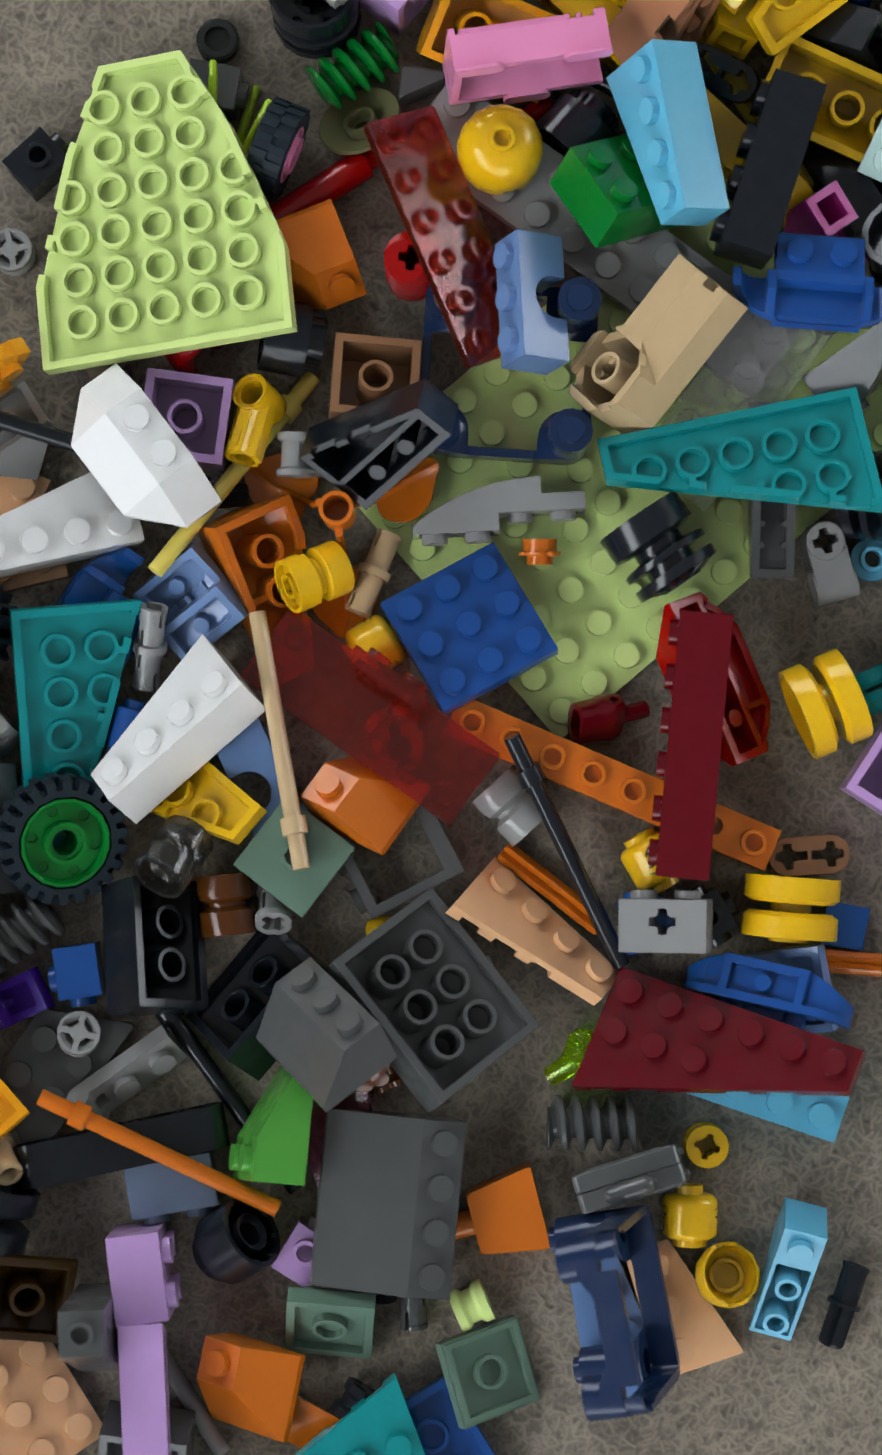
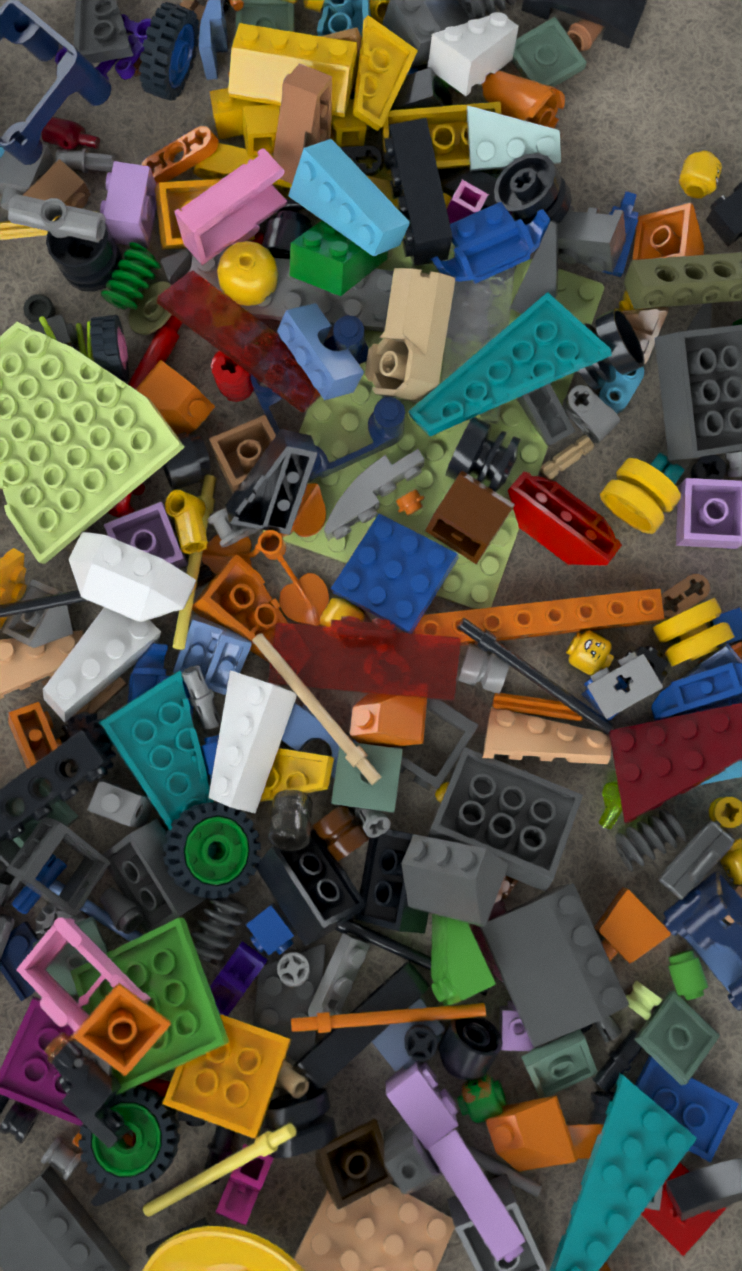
camera: 25 degrees left, 5 degrees down
(172, 1212) = (424, 1047): none -> black wheel
(216, 1309) = (482, 1098): none -> green head
(314, 576) = (280, 595): yellow wheel -> none
(373, 572) = (315, 573): tan pin -> none
(401, 1360) = (618, 1062): none -> black pin
(543, 1307) = (687, 975): none -> bright green brick
(597, 612) = (469, 517): none -> reddish brown slope
(602, 717) = (507, 583): dark red piece -> none
(693, 746) = (577, 563): dark red brick -> none
(768, 602) = (566, 457): none -> tan axle

